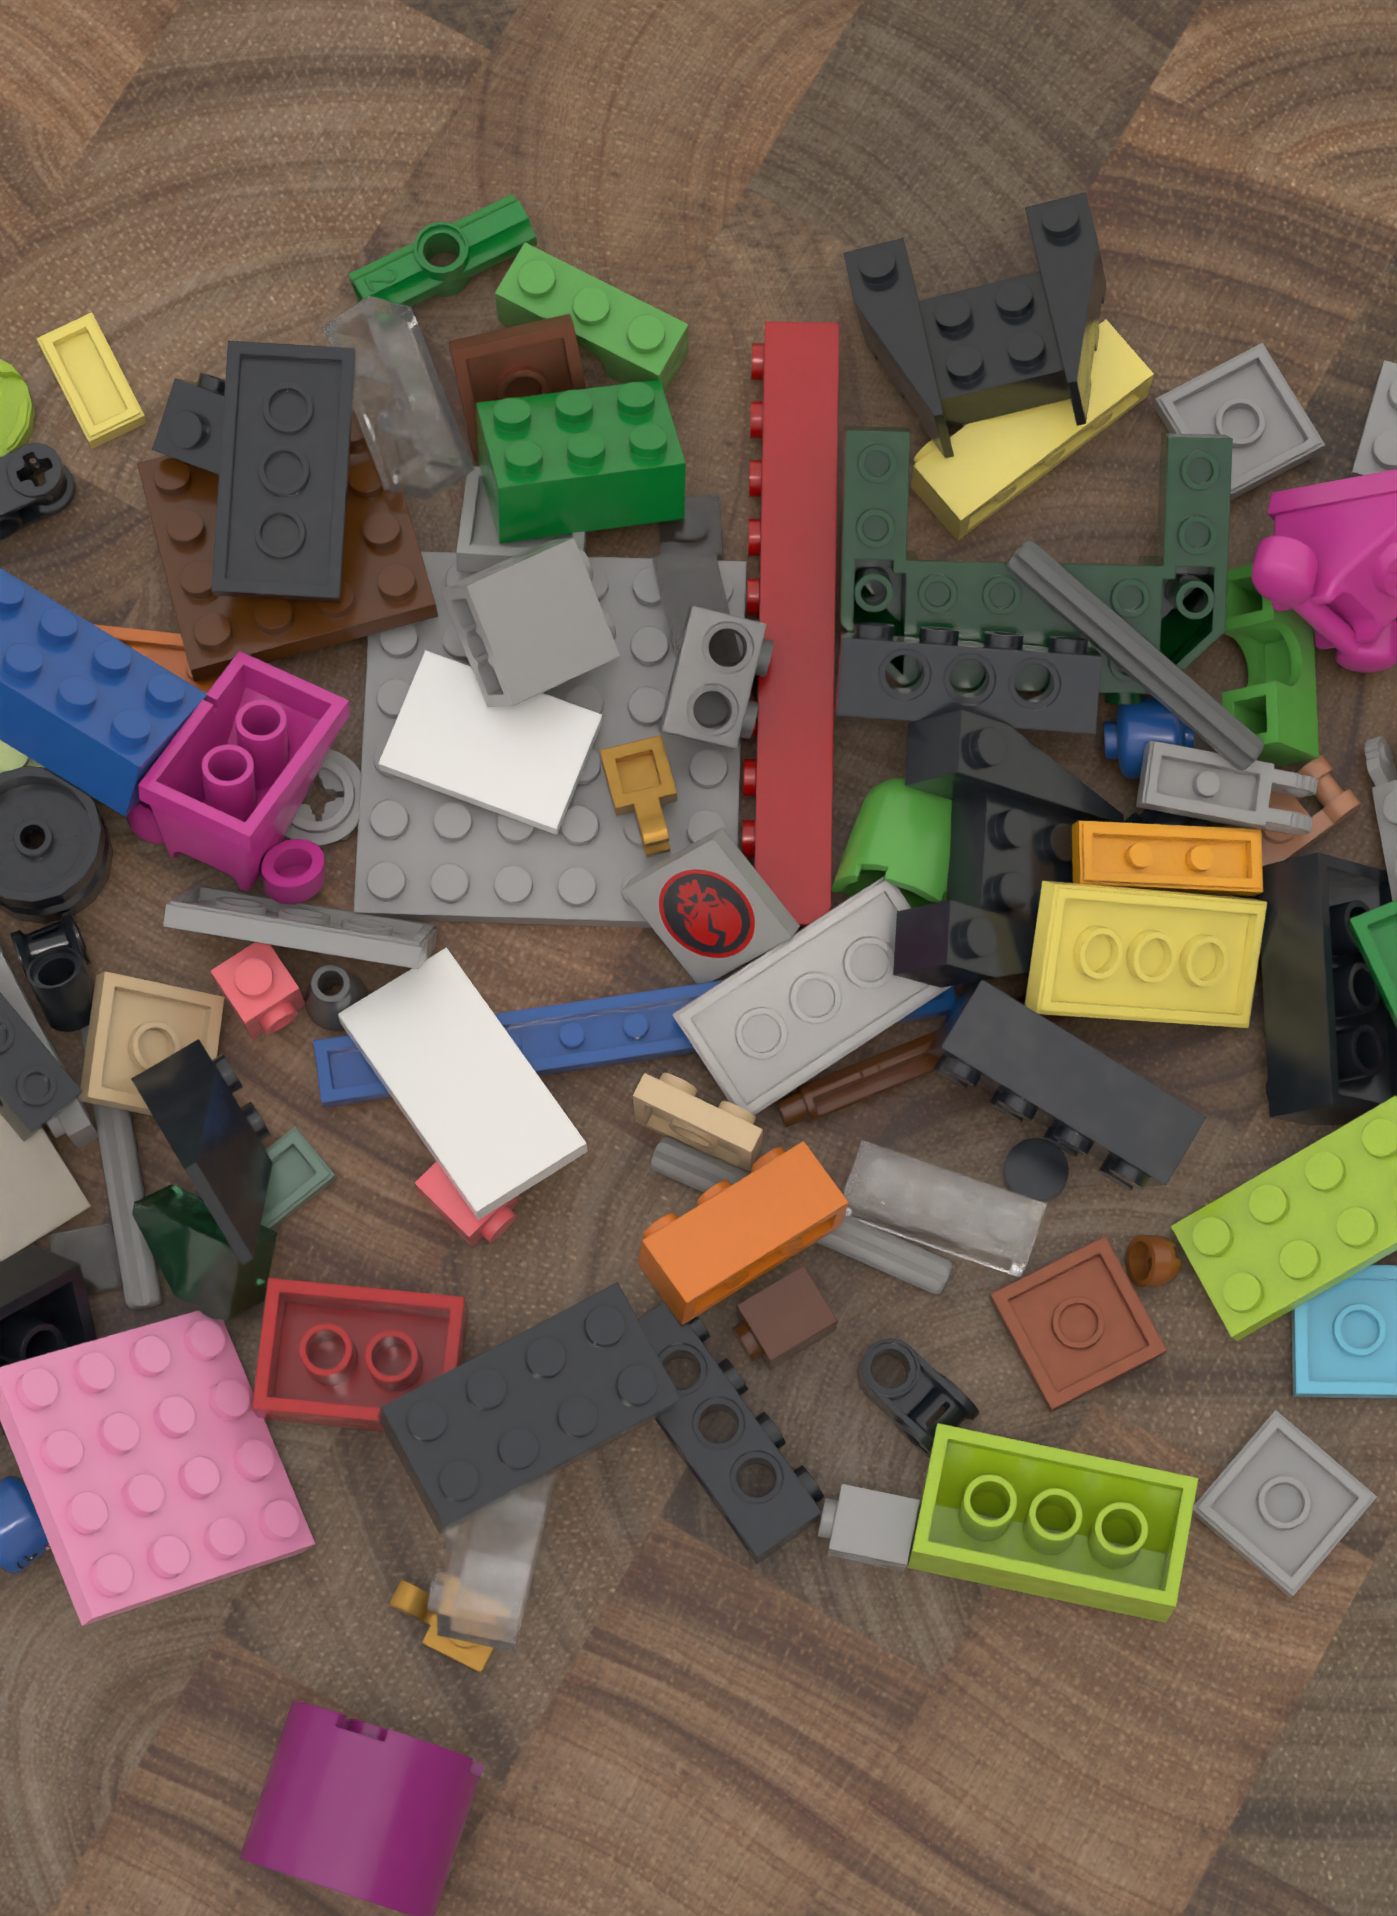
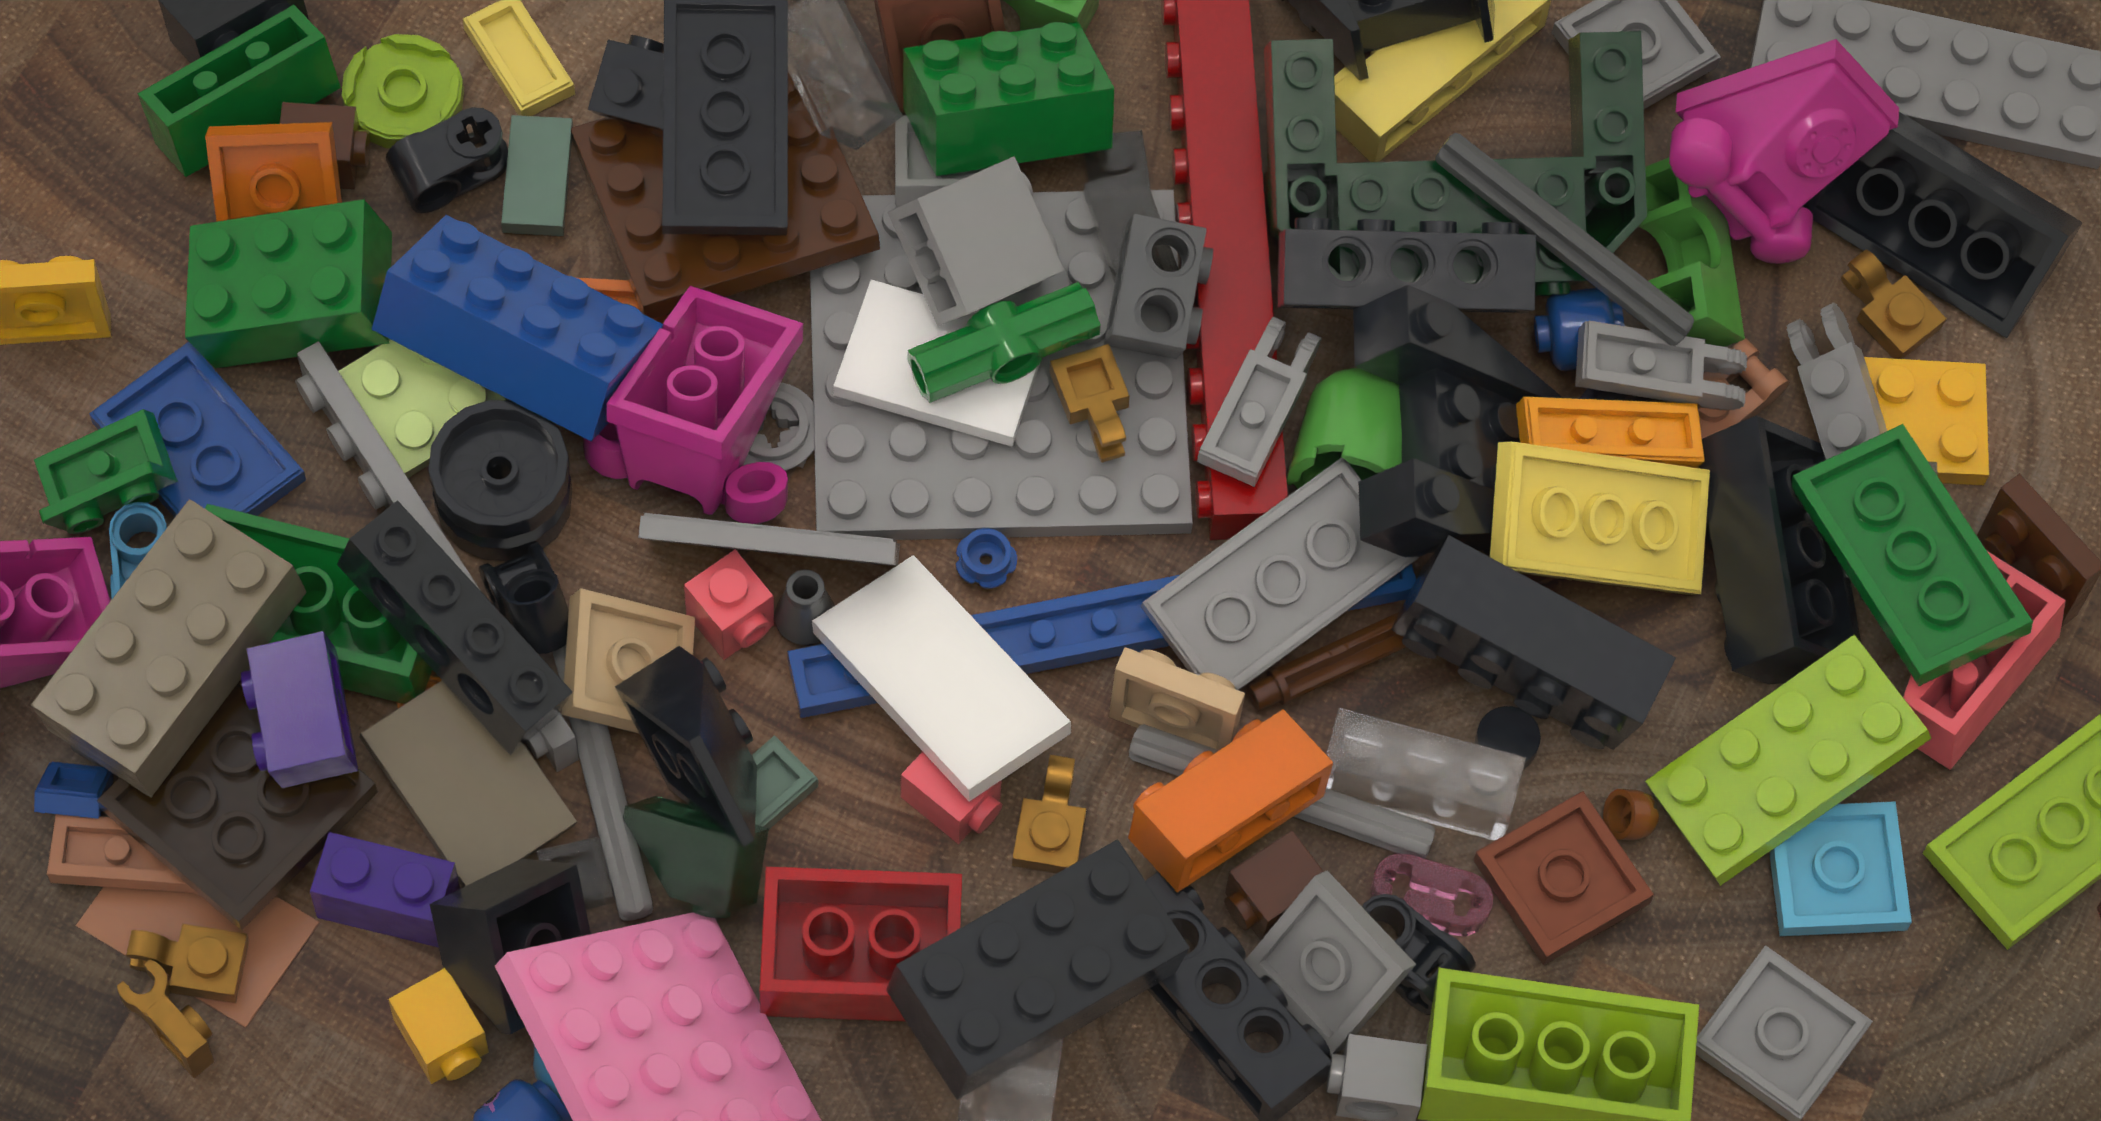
camera: 10 degrees left, 10 degrees down
(101, 511) = (537, 175): none -> sand green tile
(522, 933) = (985, 543): none -> blue plate
(552, 730) = (1004, 342): none -> green piece
(564, 1241) = (1050, 828): none -> pearl gold plate
(711, 907) = (1171, 500): tile -> none
(807, 812) = (1257, 406): none -> light grey hinge
(830, 1406) = (1330, 961): none -> light grey plate
(949, 1318) = (1437, 881): none -> clear pink beam

